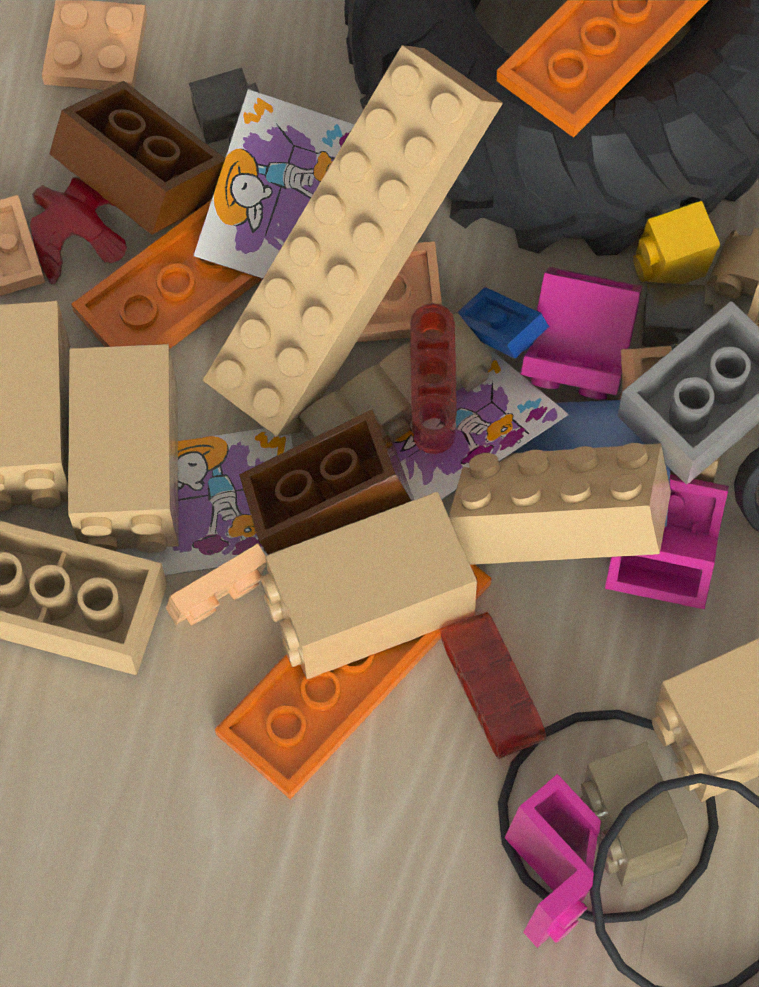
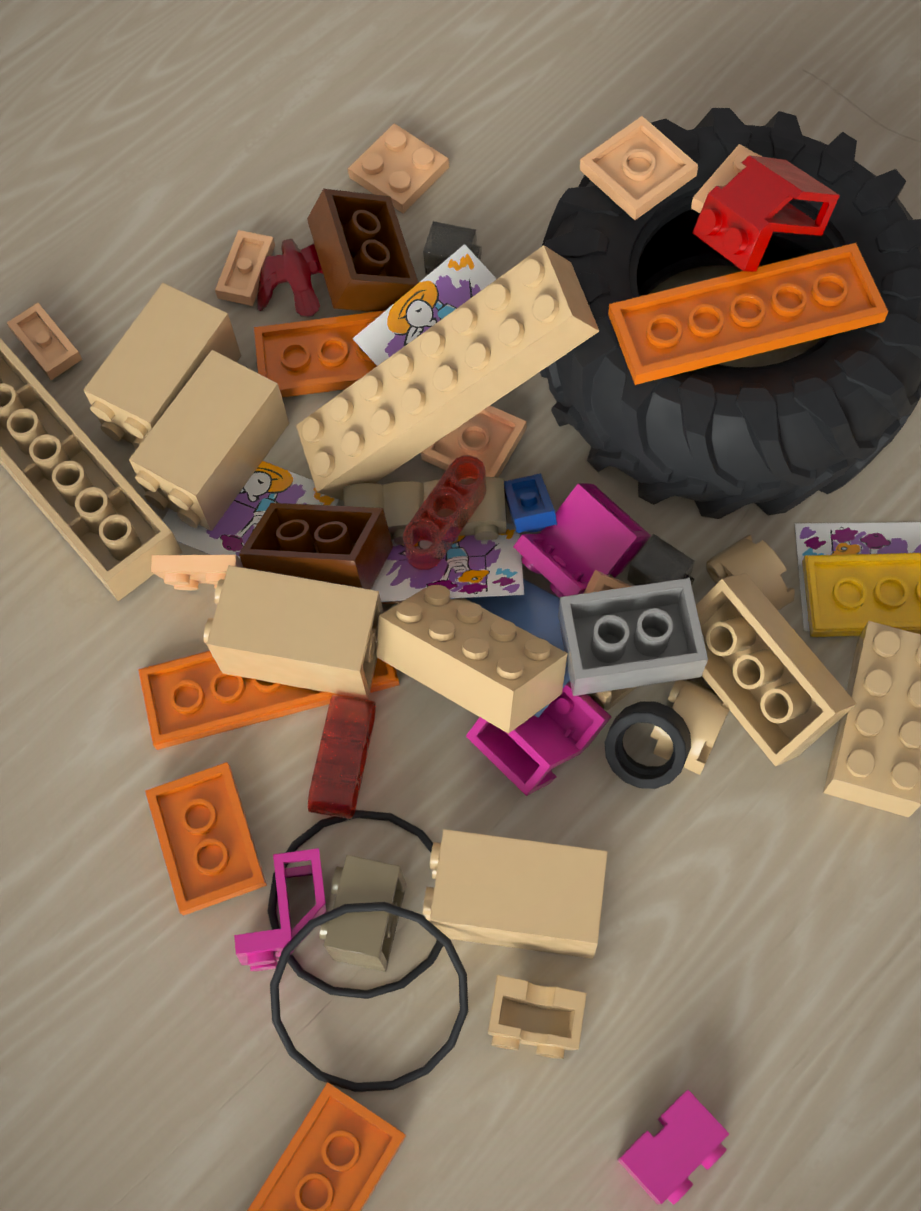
camera: 35 degrees right, 0 degrees up
(412, 849) = (205, 838): none -> orange plate
(676, 246) = (691, 519): yellow brick -> none

